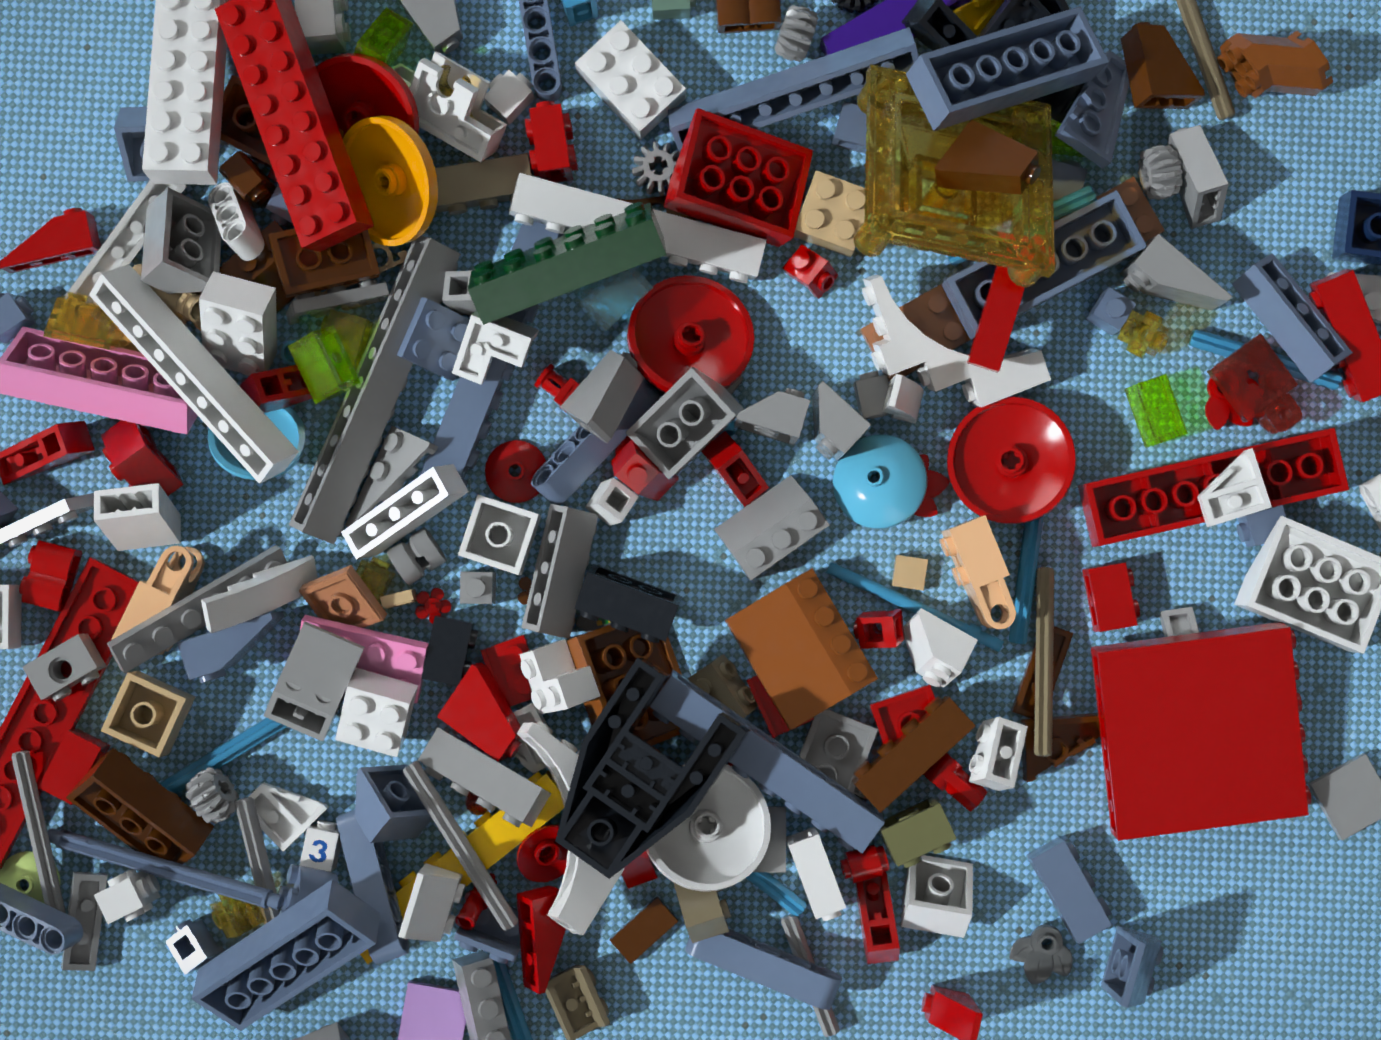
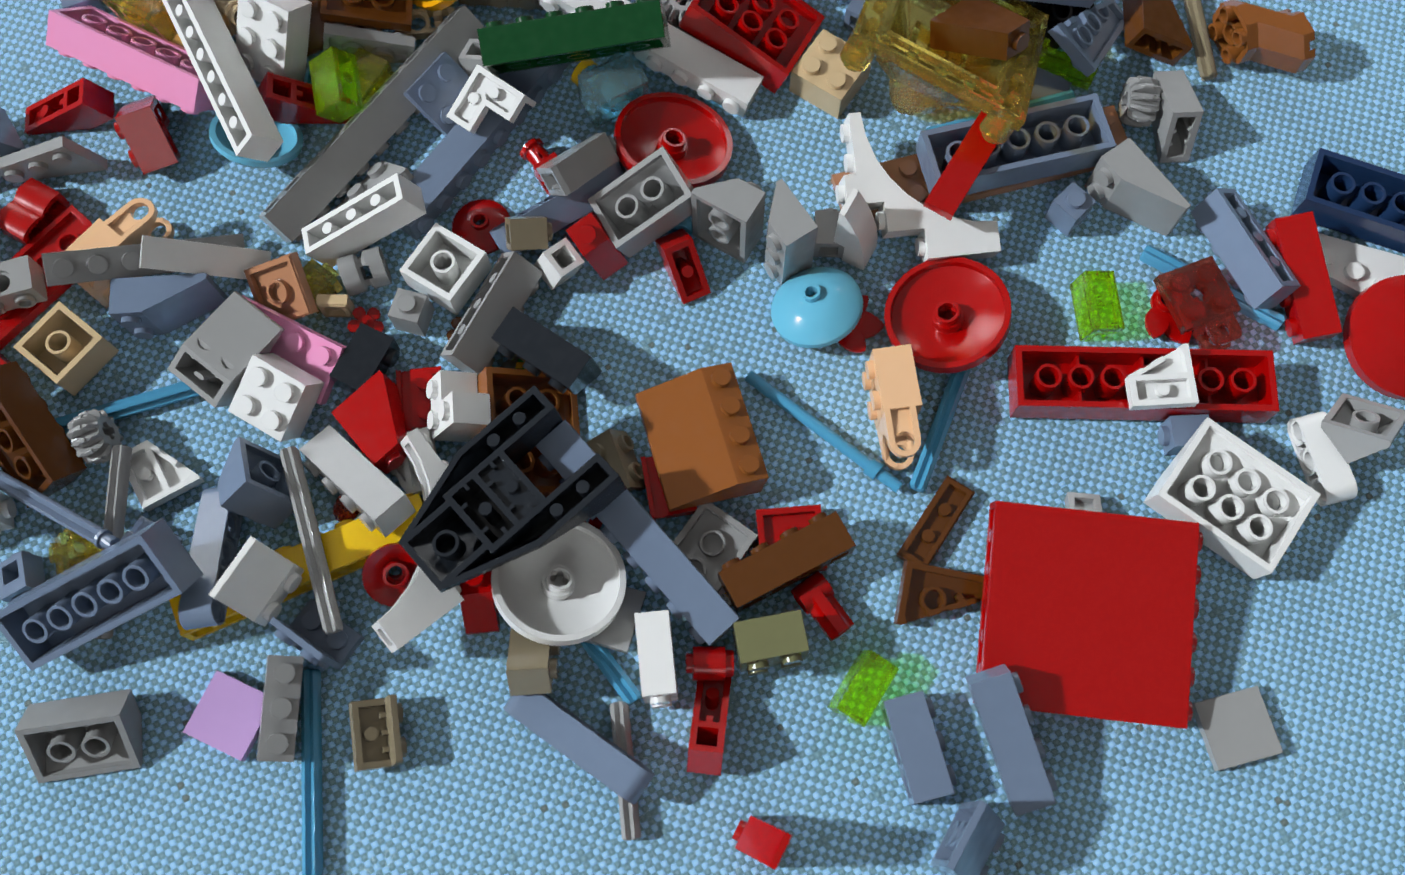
camera: 20 degrees right, 15 degrees down
(137, 517) = (122, 170): white brick -> none
(321, 846) = (180, 512): white brick -> none
(472, 908) = (302, 604): red axle -> none
(538, 936) = (360, 655): red slope -> none
(574, 483) = (527, 233): none -> dark tan brick
(643, 930) = (469, 679): reddish brown tile -> none
(771, 527) = (704, 328): light grey slope -> none
(811, 271) = (800, 117): red bracket -> none
(871, 637) = (795, 439): red brick -> none
(909, 572) = (825, 399): tan tile -> none
(937, 648) = (835, 465): white slope -> none
(938, 896) = (777, 719): white slope -> none
(997, 753) = (873, 585): white brick -> none
(1008, 848) = (863, 687): none -> clear neon green hinge
(1042, 959) = (871, 816): dark grey plate -> none
(1044, 662) = (939, 510): dark tan axle -> none
(1111, 597) = (1019, 465): red brick -> none
(1135, 330) = (1098, 232): clear yellow brick -> none
(1152, 866) = (1011, 739): none -> sand blue brick

